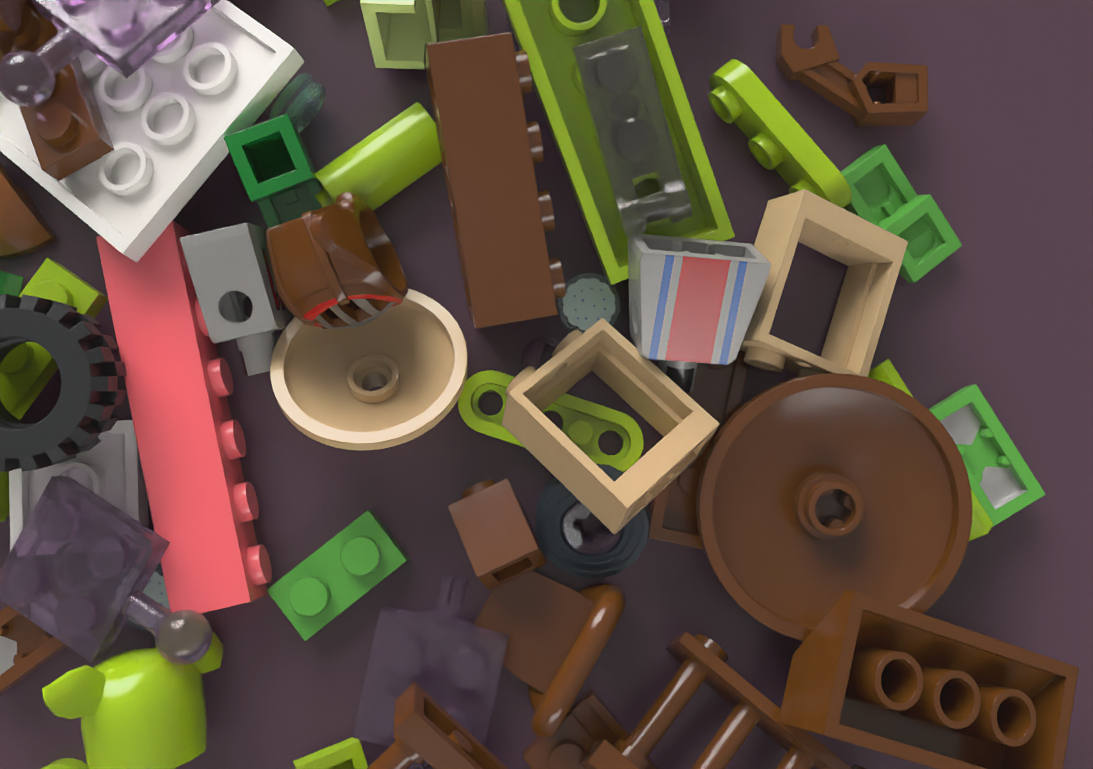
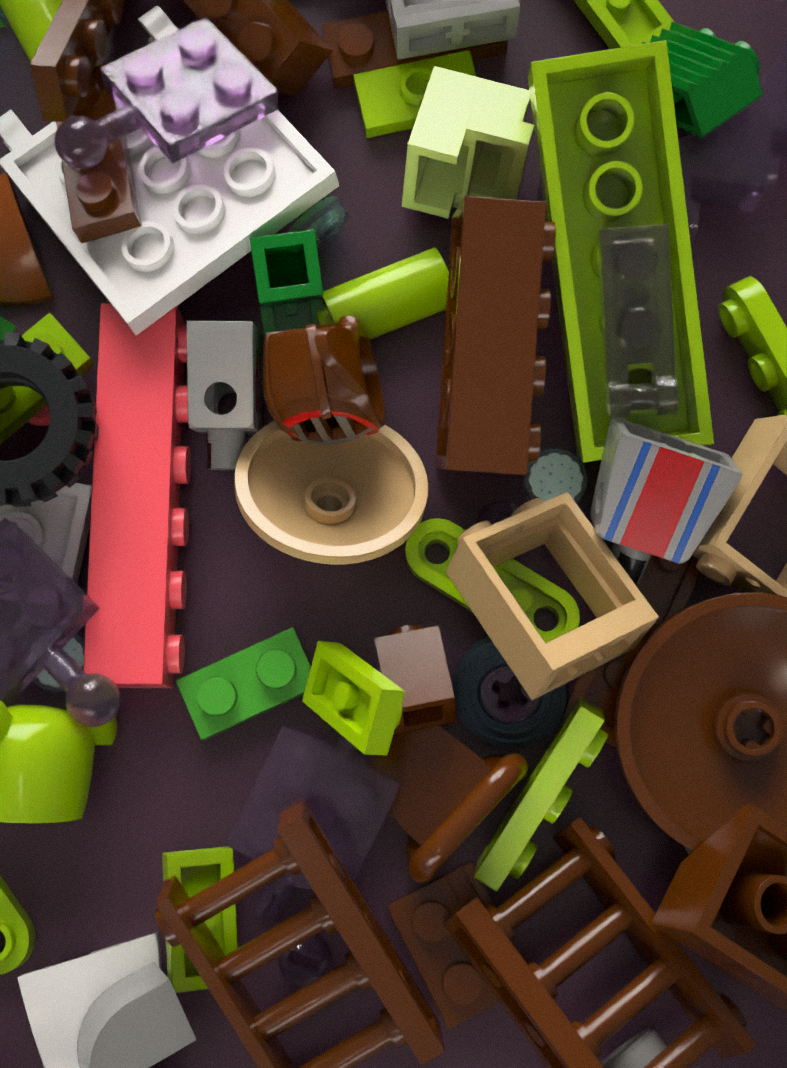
camera: 15 degrees right, 5 degrees down
(441, 573) = (353, 698): none -> lime plate
(645, 618) = (542, 795): none -> lime plate

